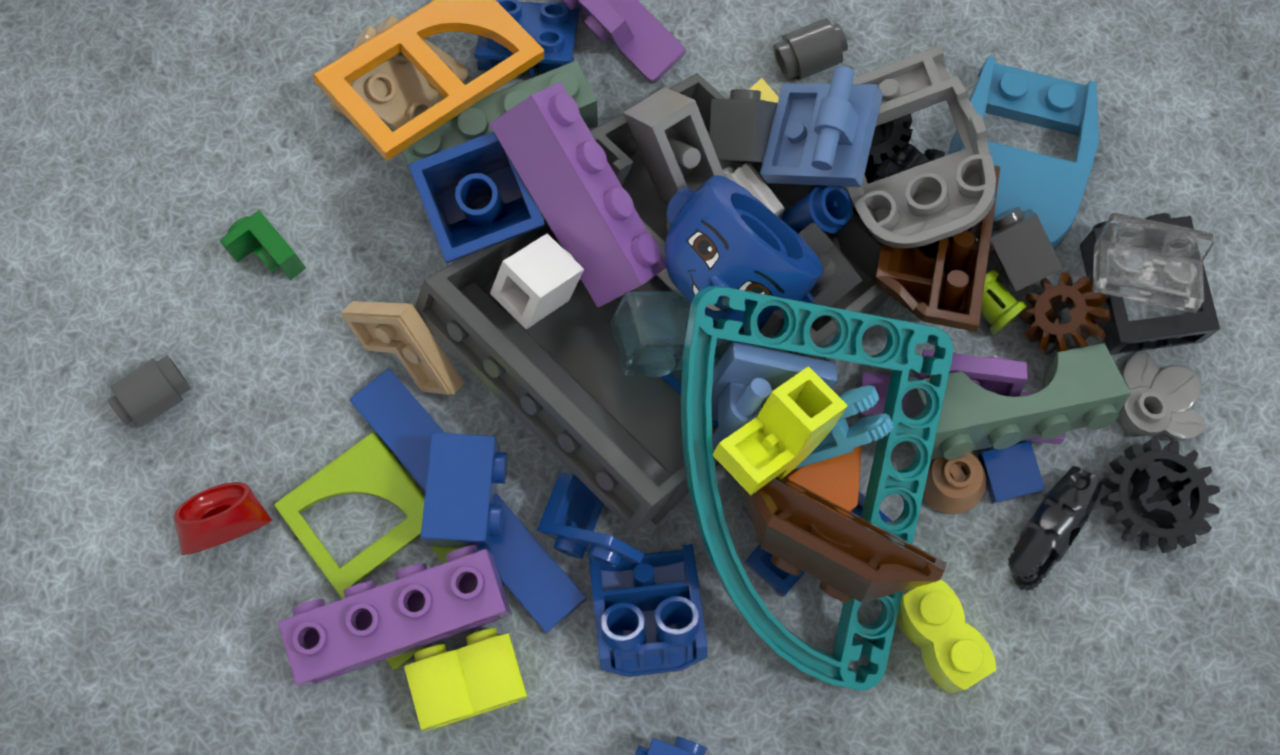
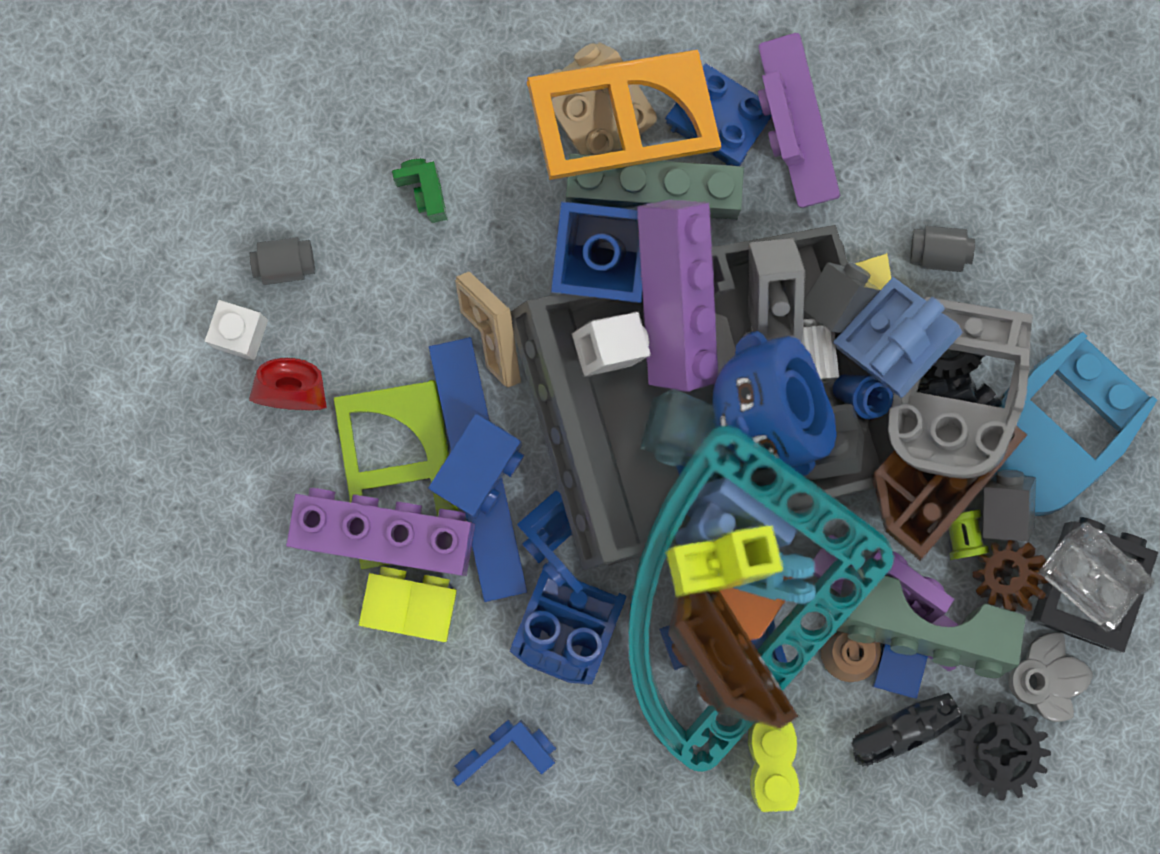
camera: 30 degrees right, 10 degrees up
(131, 486) = (236, 330): none -> white brick

